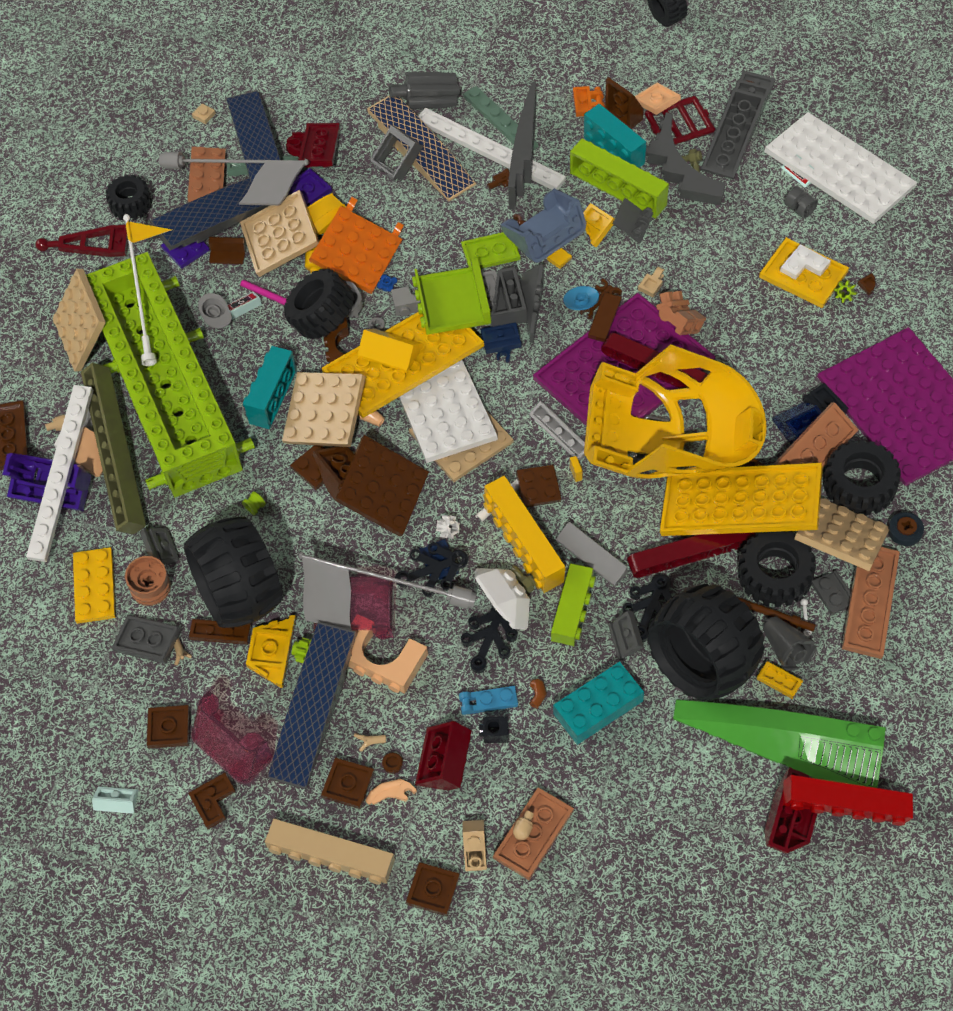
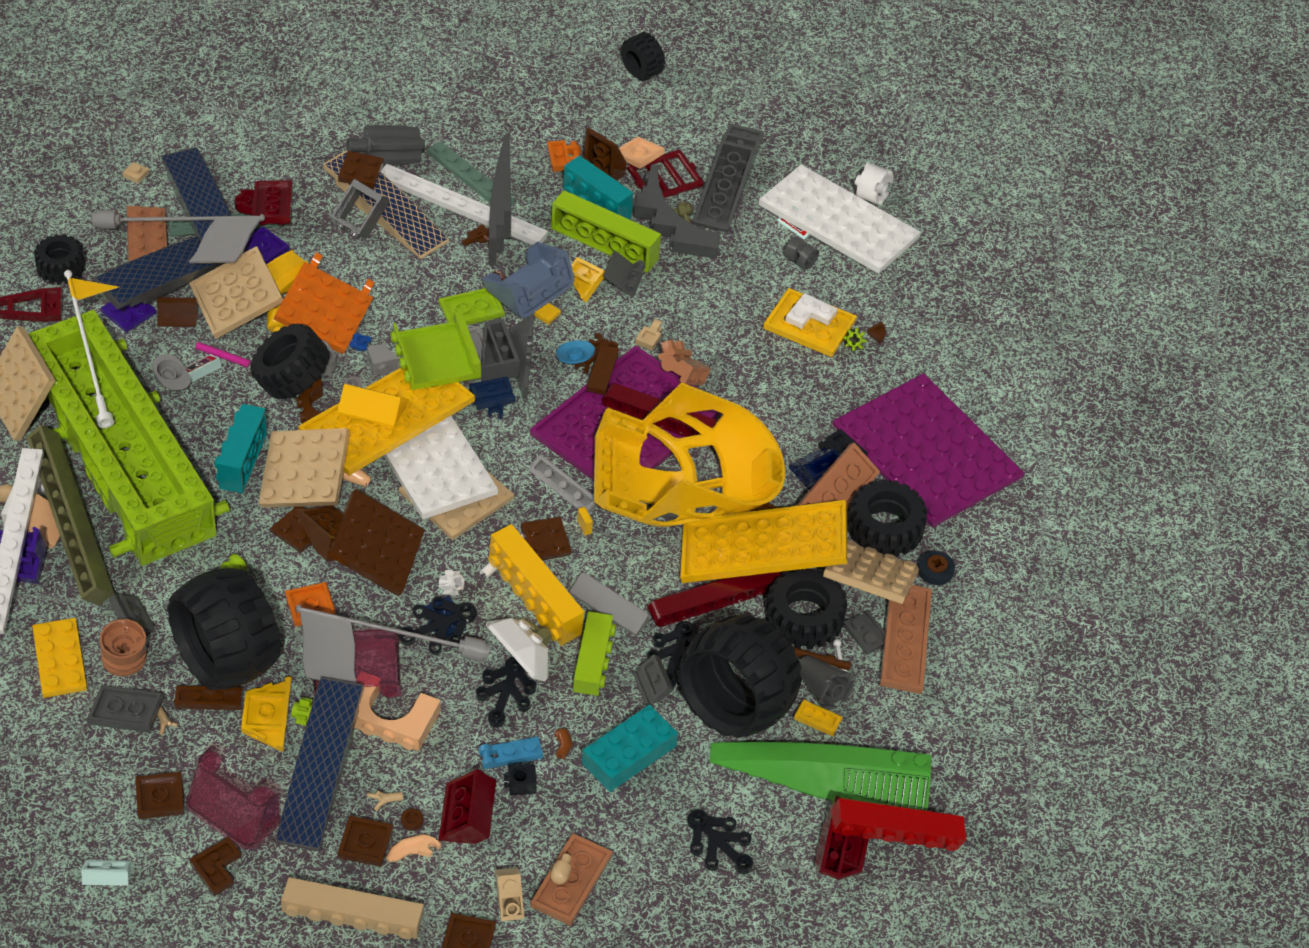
camera: 15 degrees left, 10 degrees down
(320, 540) = (311, 597): none -> orange tile
(400, 114) = (362, 168): none -> reddish brown plate
(674, 800) = (719, 840): none -> black plant
(874, 133) = (873, 183): none -> white brick

